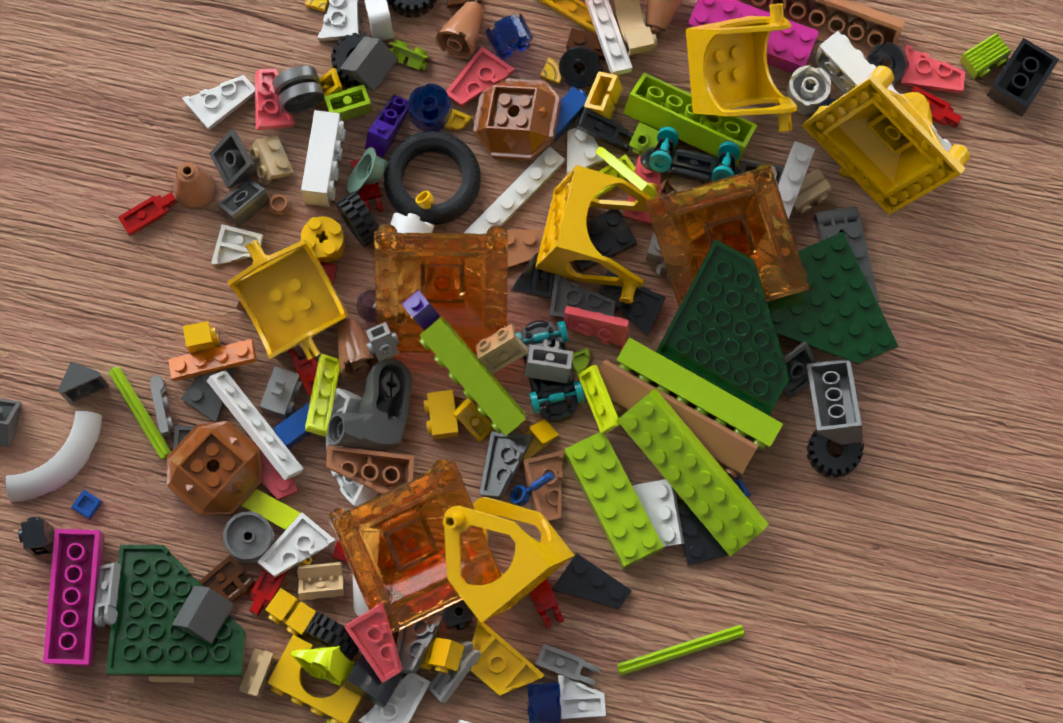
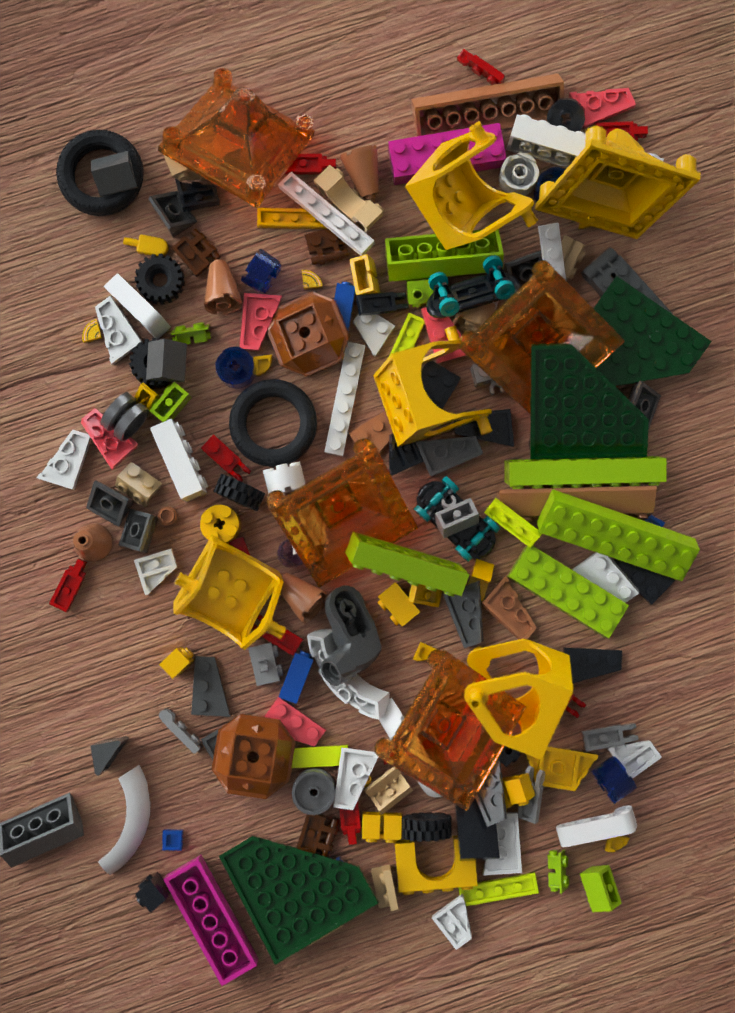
camera: 30 degrees left, 10 degrees up
(107, 594) = (235, 903): light grey hinge -> none
(139, 412) = (166, 745): lime axle -> none
(203, 614) = (319, 874): dark grey slope -> none
(212, 360) = (196, 672): orange plate -> none
(255, 425) = (262, 703): white plate -> none
(323, 395) = (300, 648): neon yellow tile -> none
(324, 663) = (436, 852): neon yellow slope -> none
(367, 171) = (220, 449): sand green piece -> none
(371, 468) = (381, 682): nougat wedge -> none
(375, 640) = (465, 817): coral wing -> none
(382, 342) = (321, 581): light grey brick -> none
(387, 125) = (211, 401): dark purple slope -> none
(420, 309) = (336, 540): dark purple slope -> none
(425, 200) = (281, 443): yellow hinge -> none
(500, 349) = (414, 529): tan bracket -> none
(526, 491) = (499, 624): blue piece -> none
(575, 55) = (322, 257): black plate -> none
(580, 360) = (476, 496): lime tile -> none
(608, 328) = (482, 462): coral wing -> none
(626, 172) = (424, 329): neon yellow tile -> none
(680, 650) = (683, 674): lime axle -> none
(829, 464) = (693, 452): black tyre -> none
(835, 401) = (691, 413): dark grey slope -> none
(985, 56) = (636, 65): lime brick -> none
(1022, 77) = (675, 65): black brick -> none

